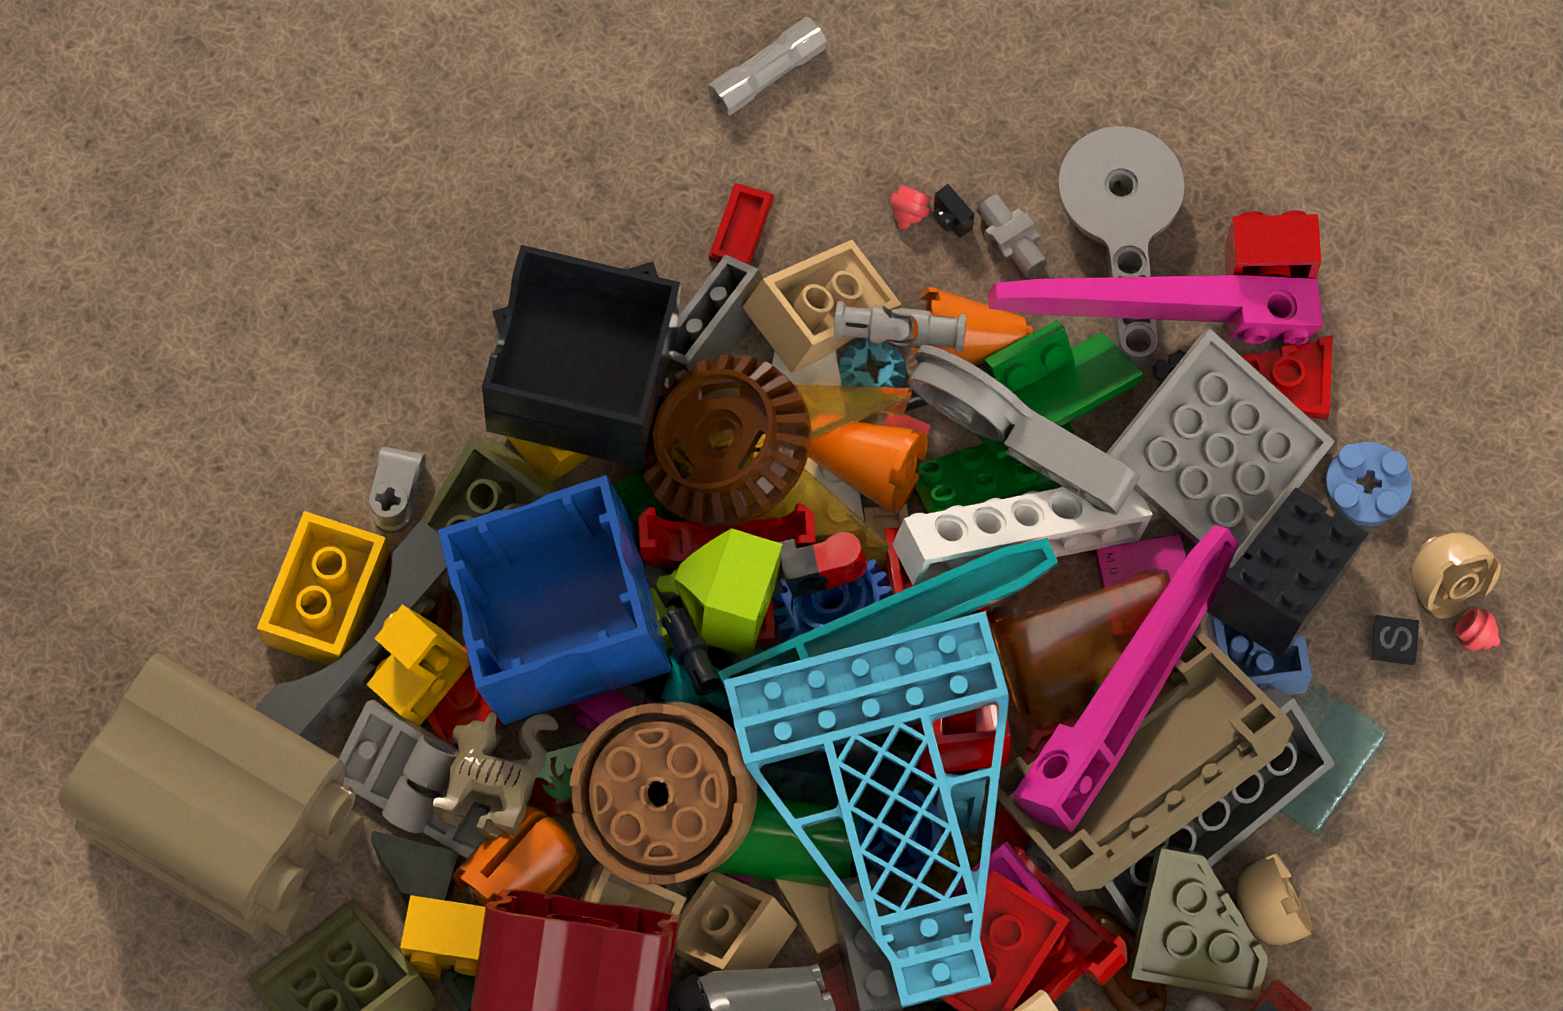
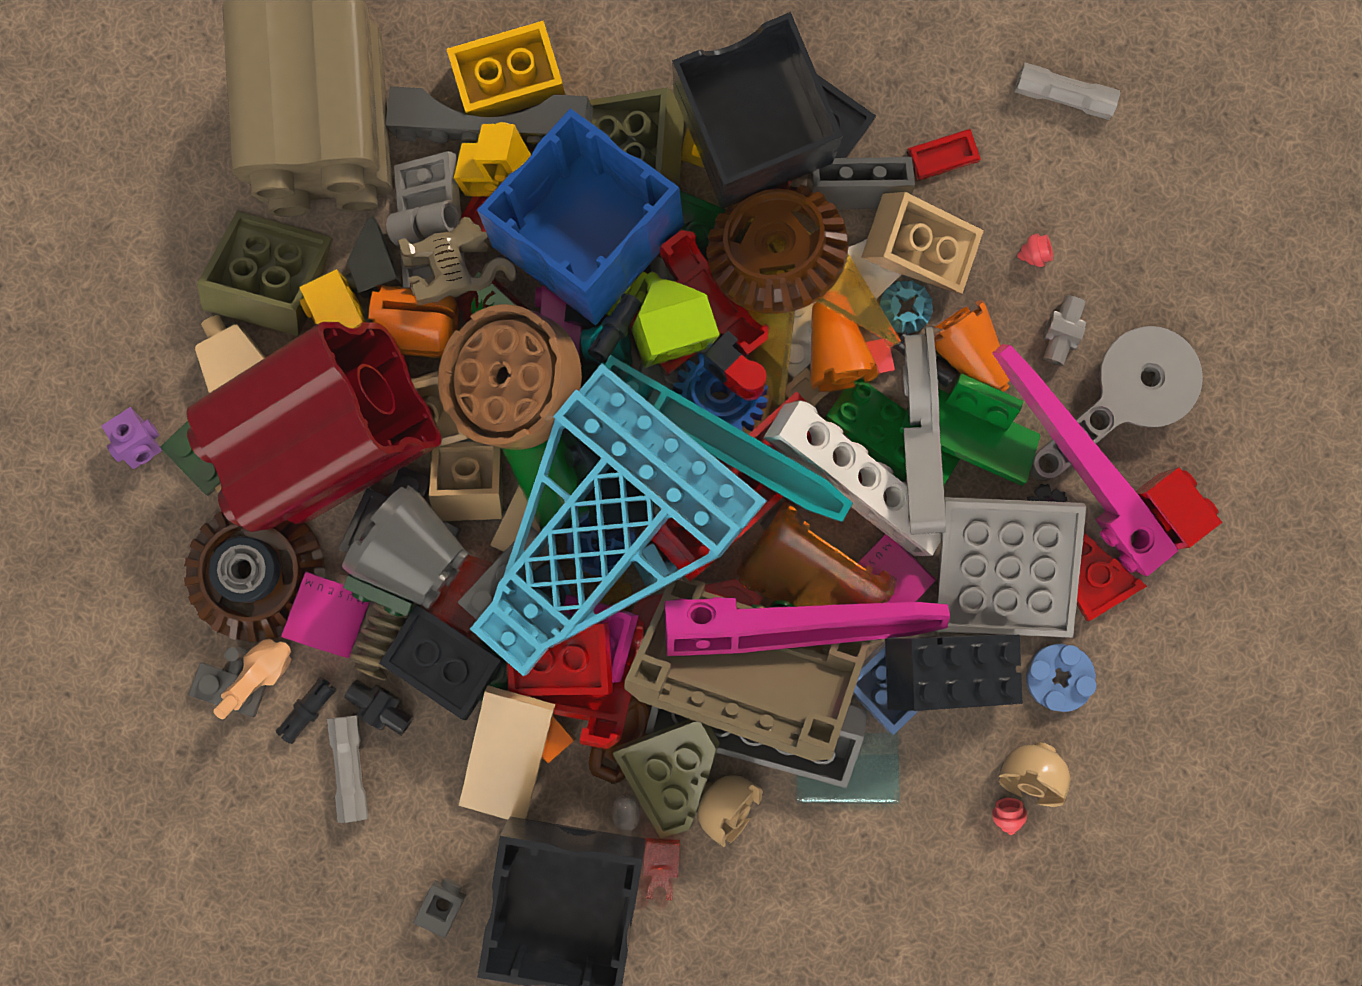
camera: 50 degrees right, 15 degrees up
(395, 482) = (612, 65): light grey piece -> none
(882, 324) = (931, 293): light grey piece -> none
(952, 212) = (1051, 281): black plate -> none
(1395, 640) = (965, 765): black tile -> none

